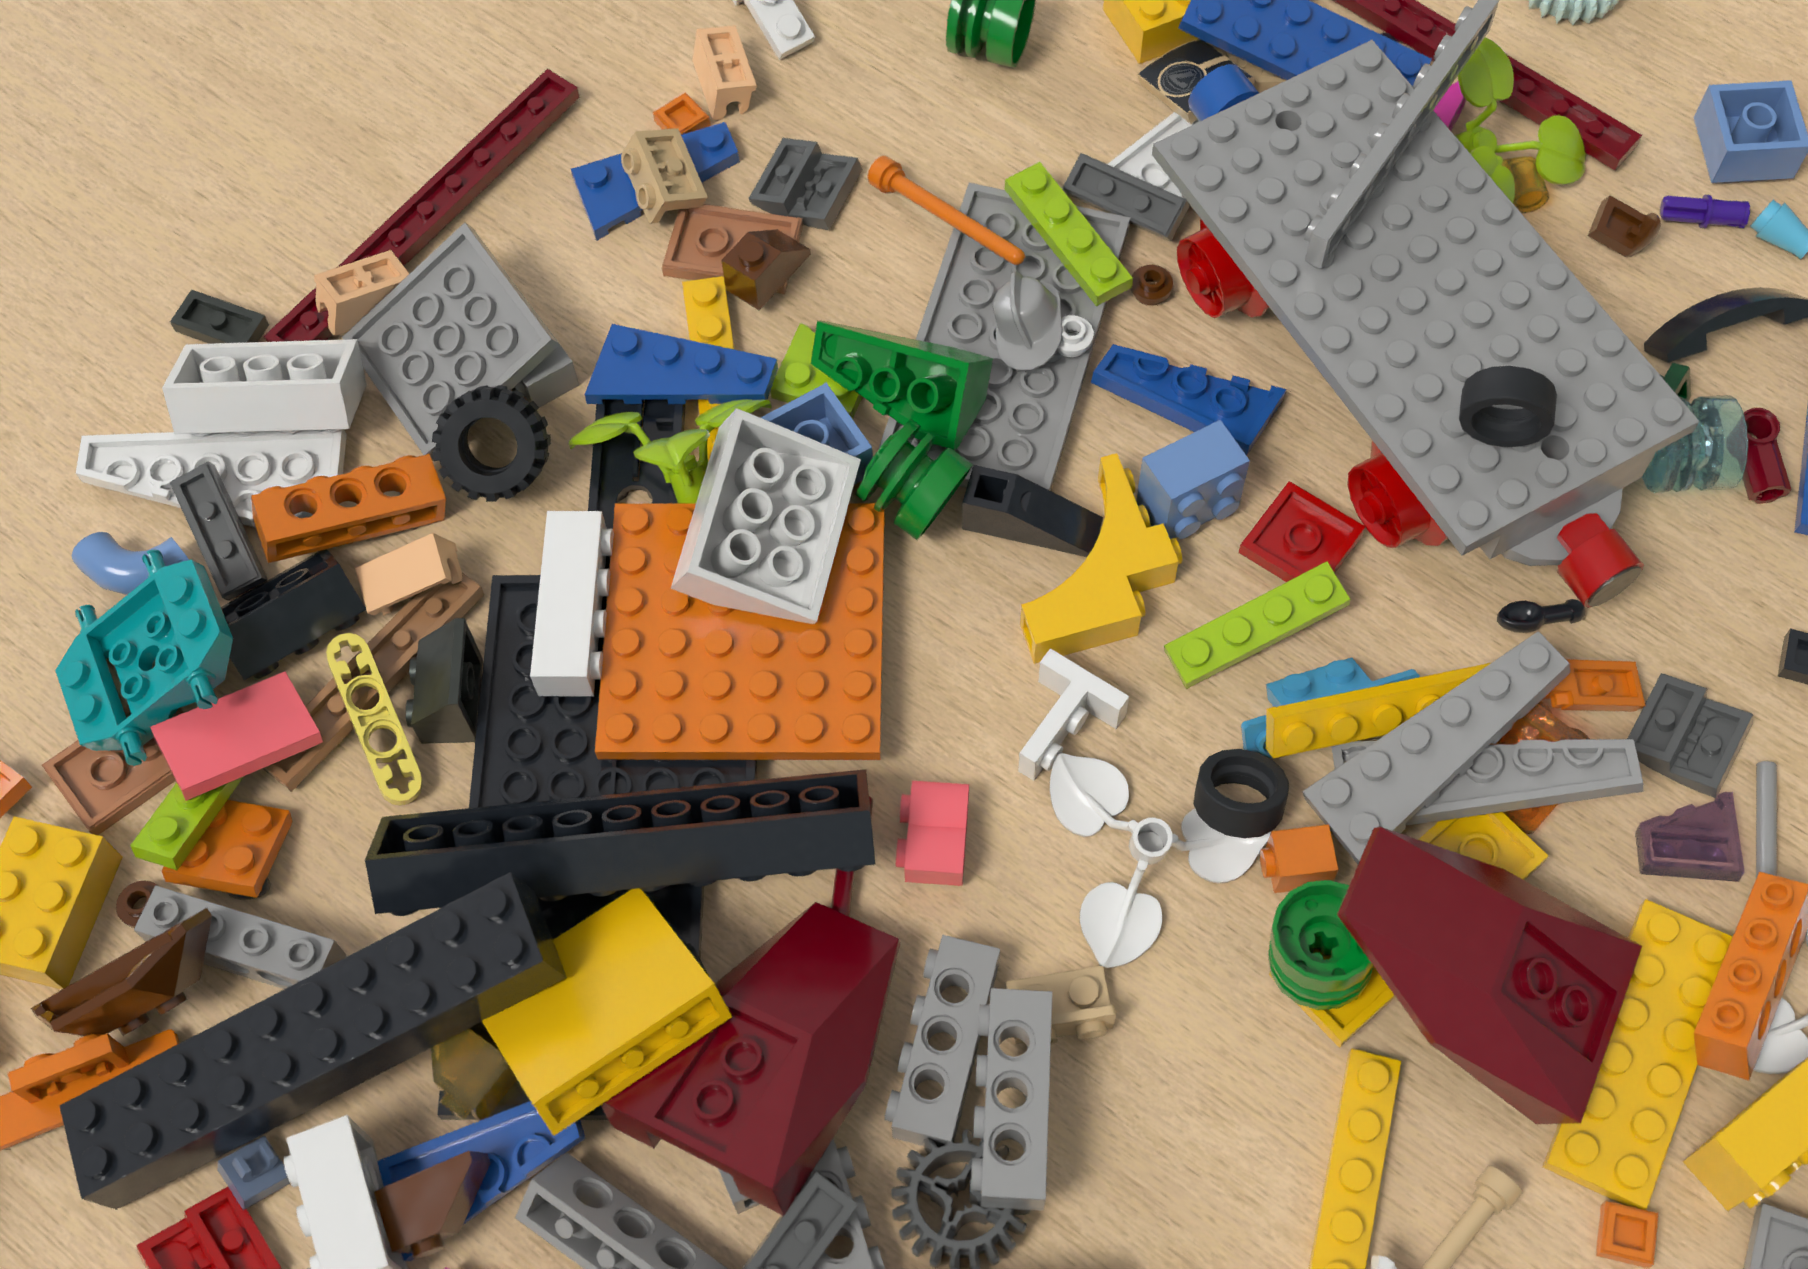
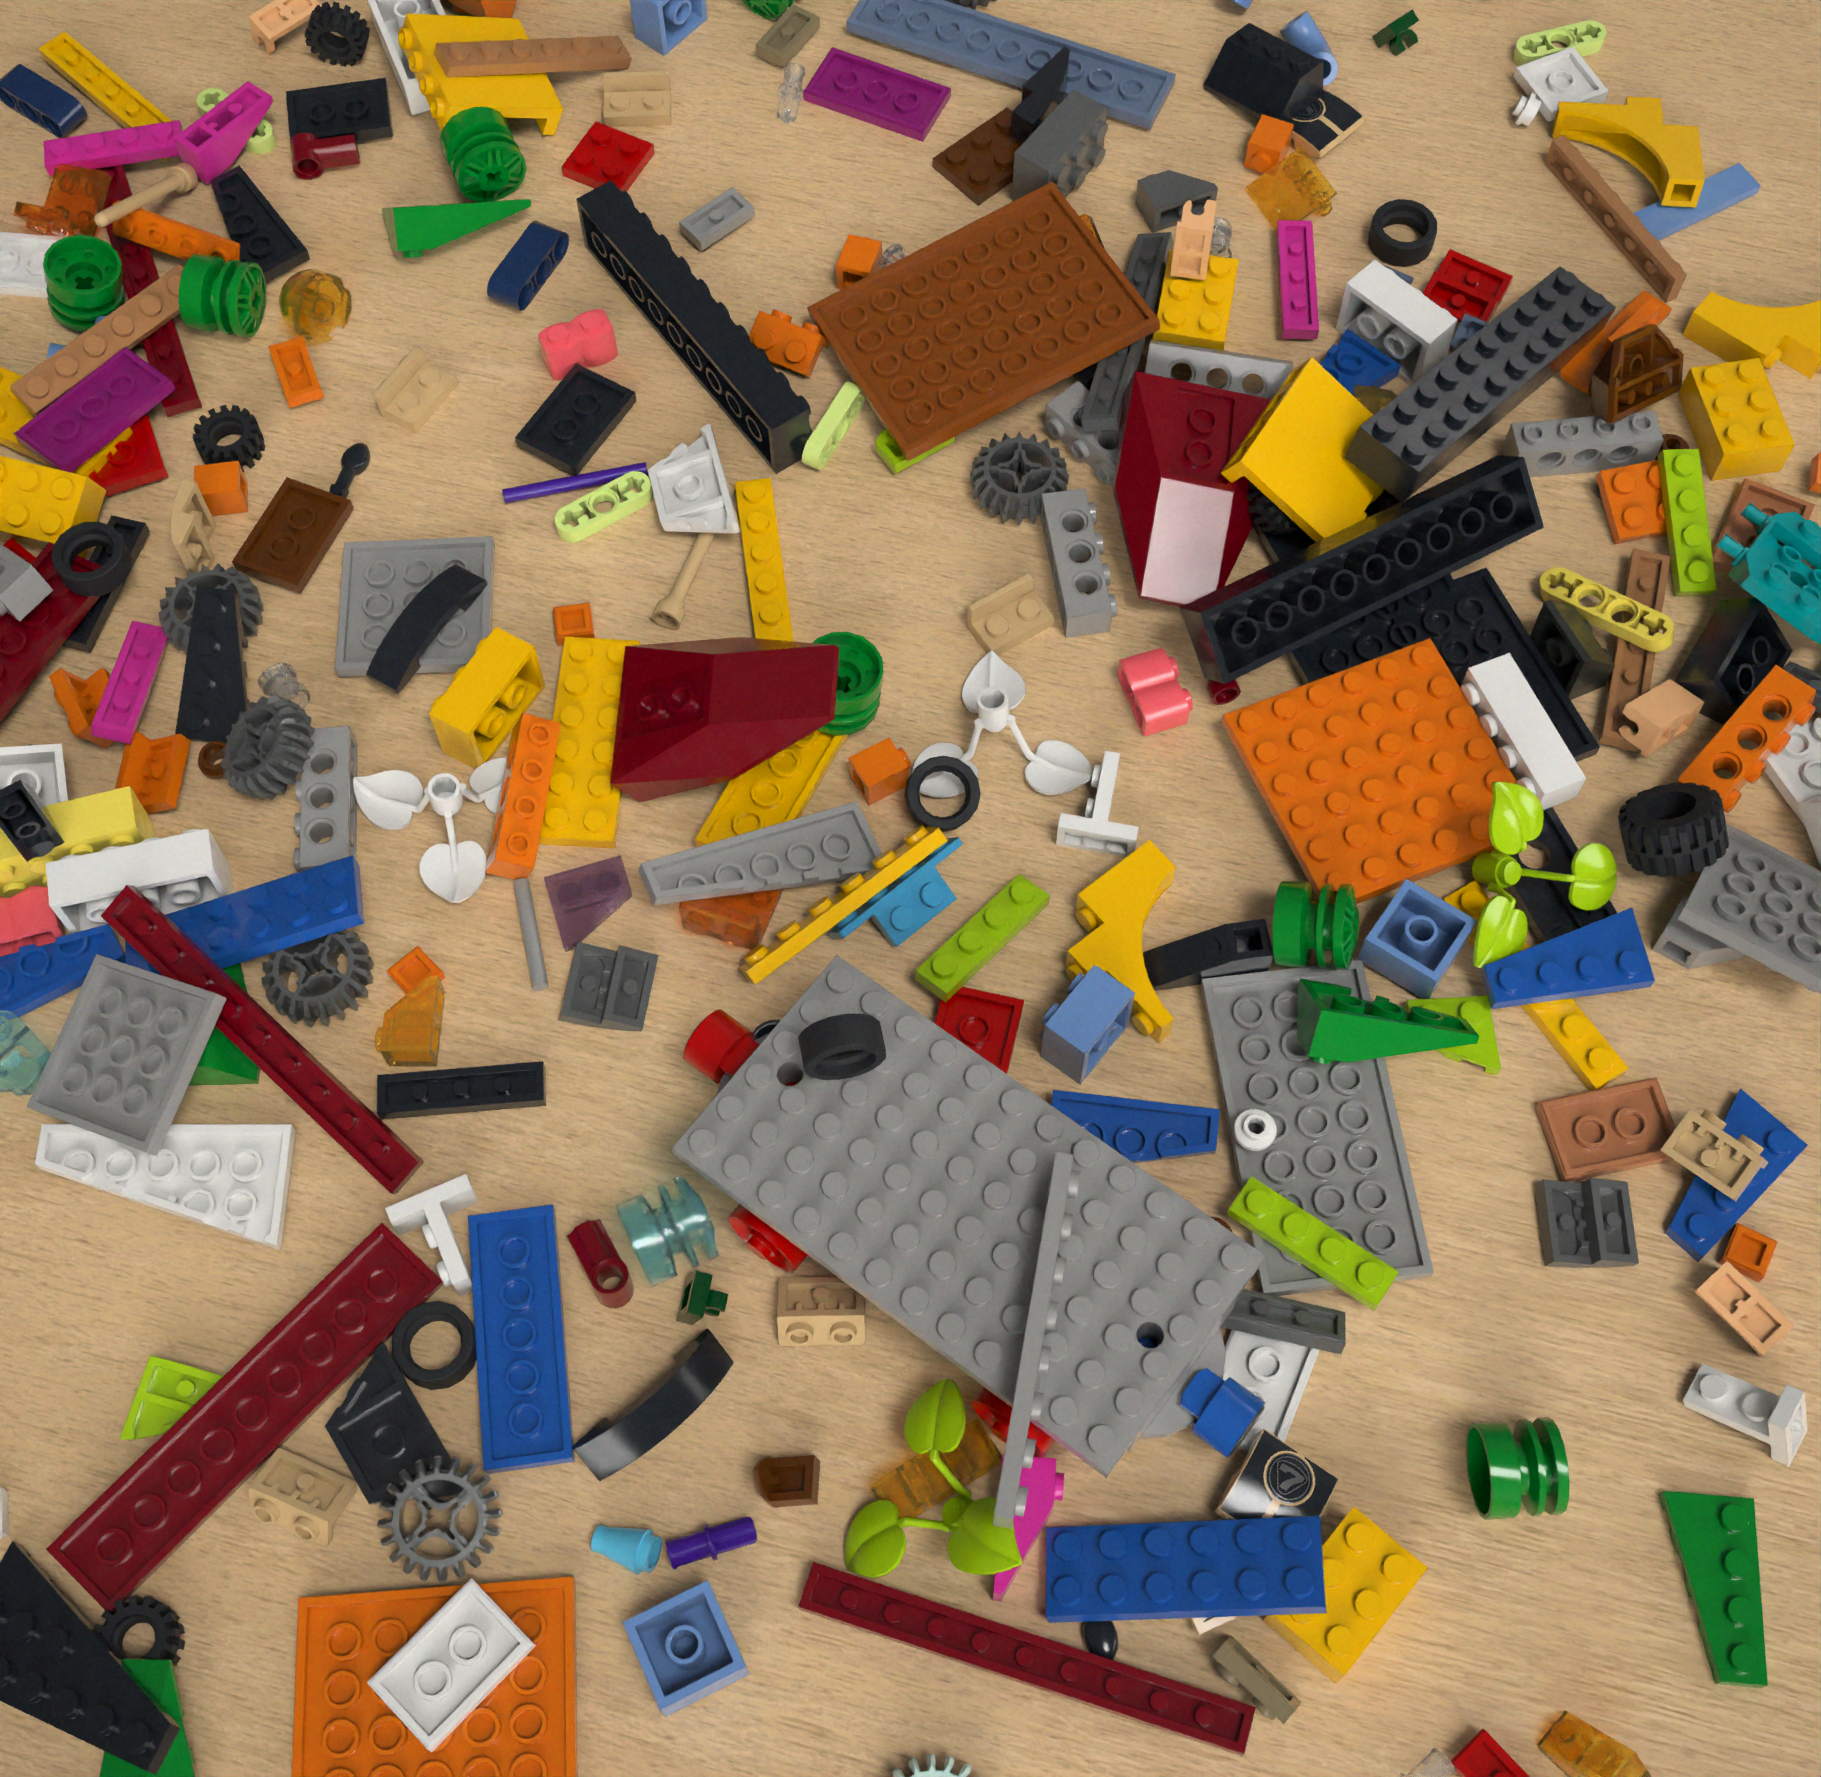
camera: 155 degrees right, 0 degrees up
(236, 735) = (1683, 555): coral tile -> none
(431, 1203) = (1350, 340): reddish brown slope -> none
(762, 265) = (1565, 1097): reddish brown slope -> none
(766, 520) = (1409, 829): white slope -> none
(888, 176) = (1513, 1254): orange piece -> none
(1021, 1181) = (1024, 566): light grey brick -> none
(1027, 322) = (1301, 1125): light grey piece -> none
(1423, 754) = (818, 850): light grey wing -> none
(1599, 687) = (700, 978): orange hinge -> none

